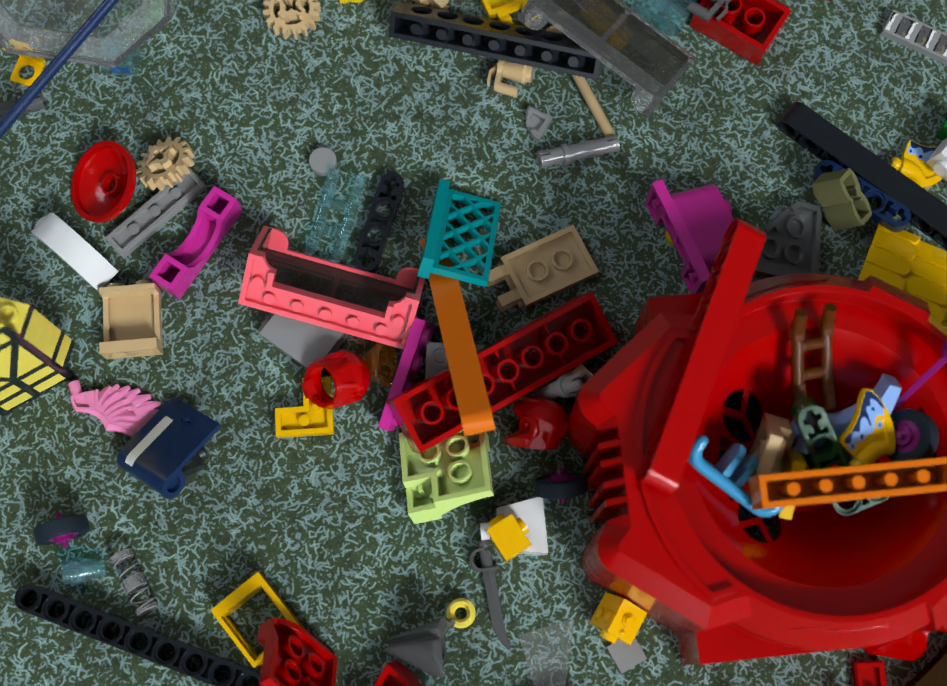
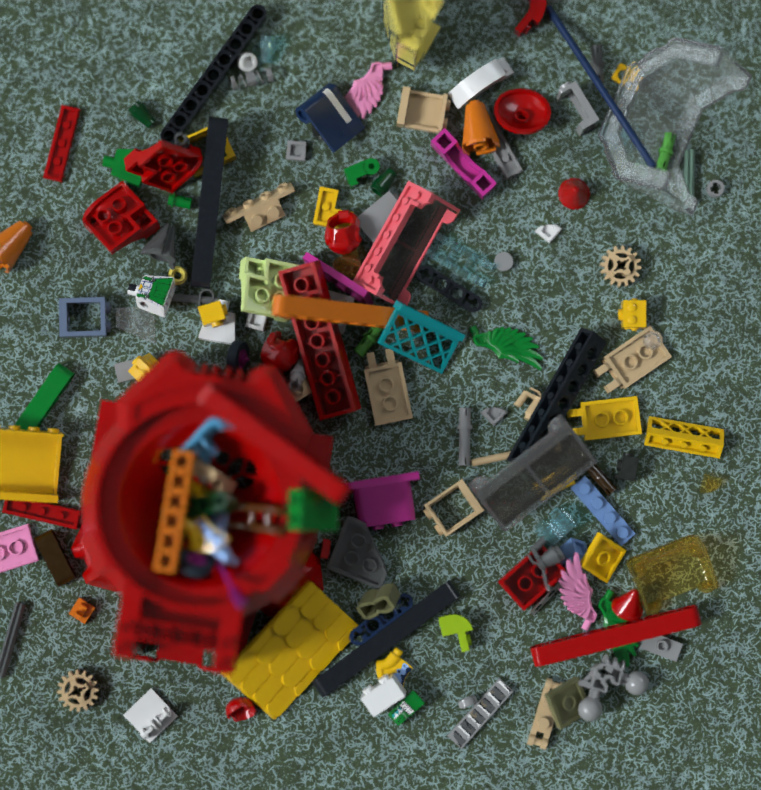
camera: 105 degrees right, 10 degrees up
(61, 529) = (295, 40): black wheel -> none
(79, 105) = (581, 104): none -> light grey panel
(109, 596) = (247, 62): none -> white tile
(141, 231) = (478, 130): none -> orange cone
(165, 163) = (526, 155): tan gear -> none
(206, 95) = (574, 193): none -> red hat
(230, 487) = (296, 150): none -> light grey tile
(233, 376) = (358, 171): none -> green leg
(249, 659) = (181, 140): none -> dark grey pin
(252, 350) = (382, 184): none -> dark green cone
(267, 114) = (548, 232): none -> white tile
(330, 514) = (262, 209): none -> tan bracket
(336, 591) = (209, 202): none -> black beam
(347, 641) = (179, 201): none -> green pin
(436, 128) = (508, 345): none -> green animal
(480, 311) = (367, 341): none -> bright green pin
(500, 477) = (256, 322): none -> white tile
(500, 640) = (154, 293): none -> torso
(695, 123) = (468, 496): none -> tan window
(787, 279) = (311, 511): none -> green panel
(836, 99) = (458, 625): none -> lime brick
(928, 60) = (468, 701): none -> light grey tile

